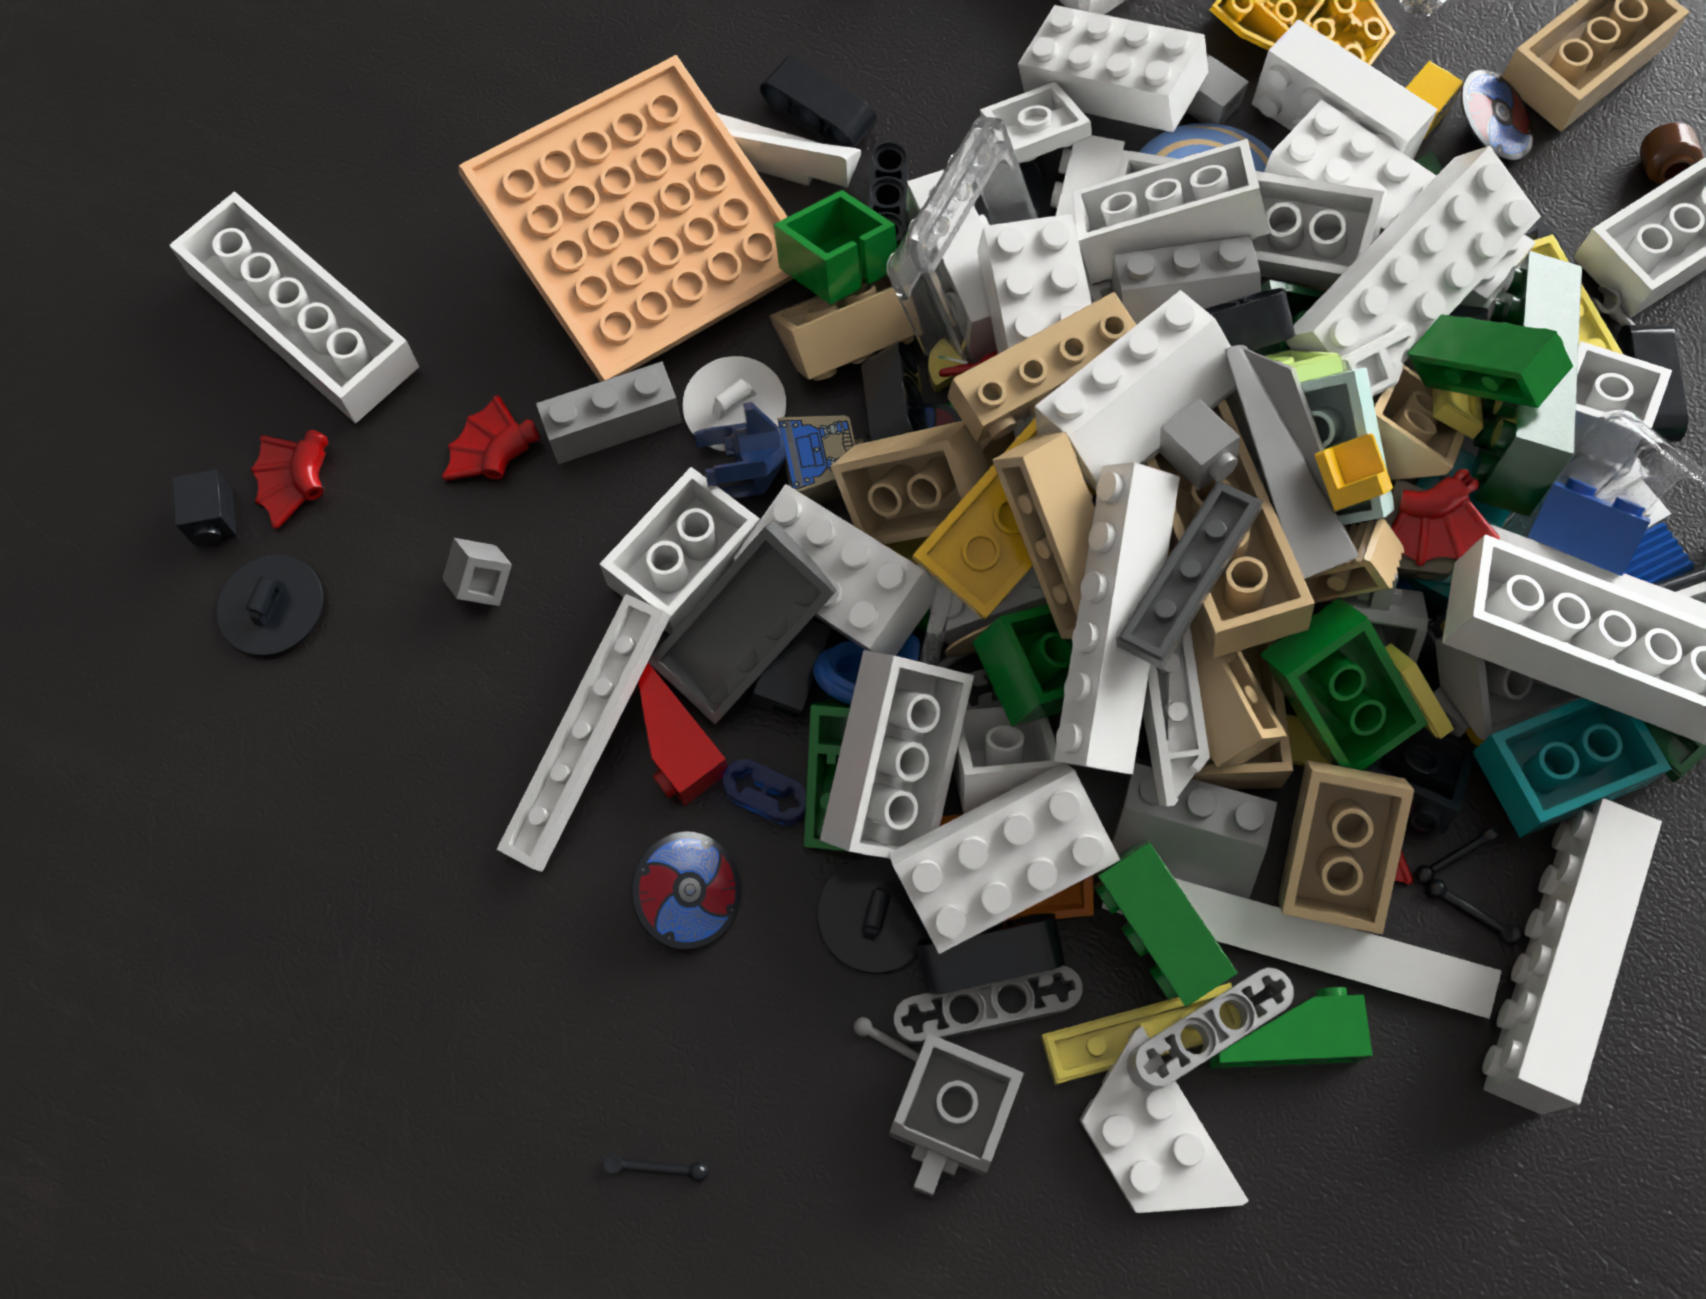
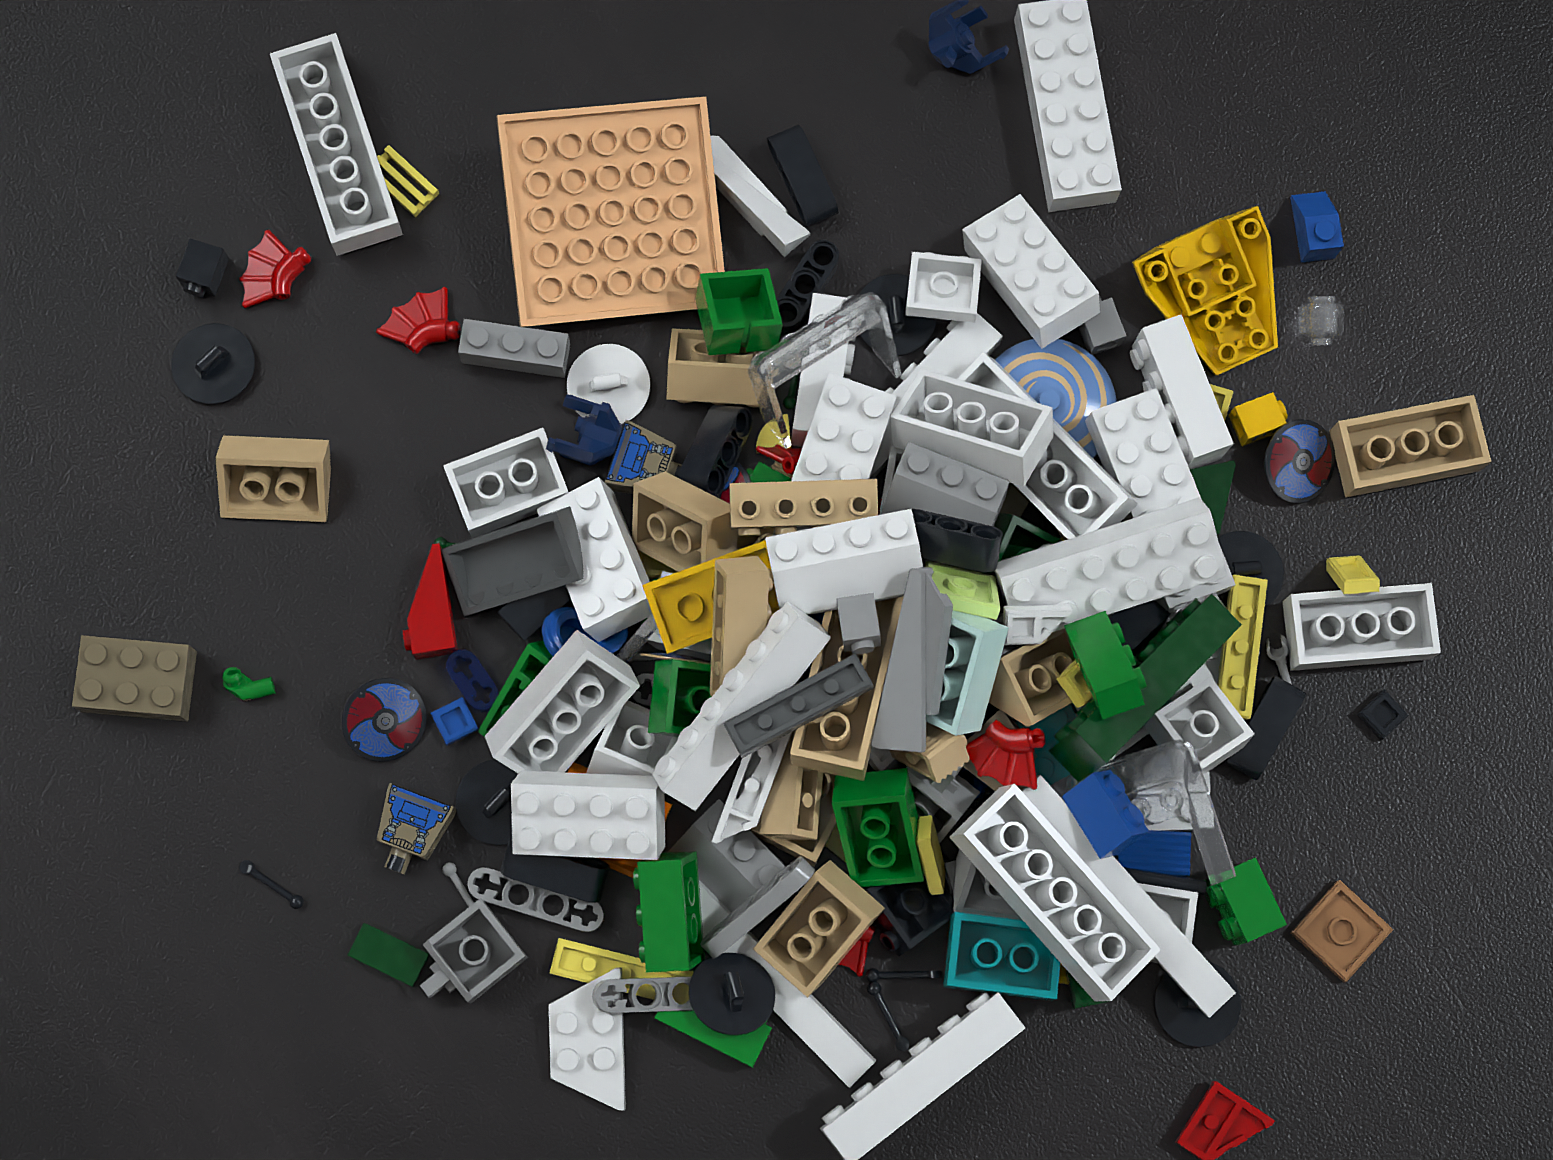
camera: 20 degrees right, 10 degrees up
(351, 1006) = (134, 678): none -> dark tan brick
(402, 303) = (423, 182): none -> light yellow tile
(406, 689) = (273, 478): none -> tan slope
(476, 572) = (362, 418): light grey panel -> none
(495, 946) = (244, 687): none -> green arm
(583, 733) = (373, 576): white plate -> none
(770, 850) = (454, 721): none -> blue tile
(790, 997) = (411, 826): none -> torso
(849, 1173) = (388, 954): none -> dark green tile
(1262, 857) = (757, 907): none -> light grey beam
(1292, 981) = (732, 994): none -> black shield
(1353, 471) = (946, 697): yellow panel -> none
(1633, 185) = (1352, 574): none -> light yellow tile
(1669, 151) = (1408, 561): reddish brown head -> none

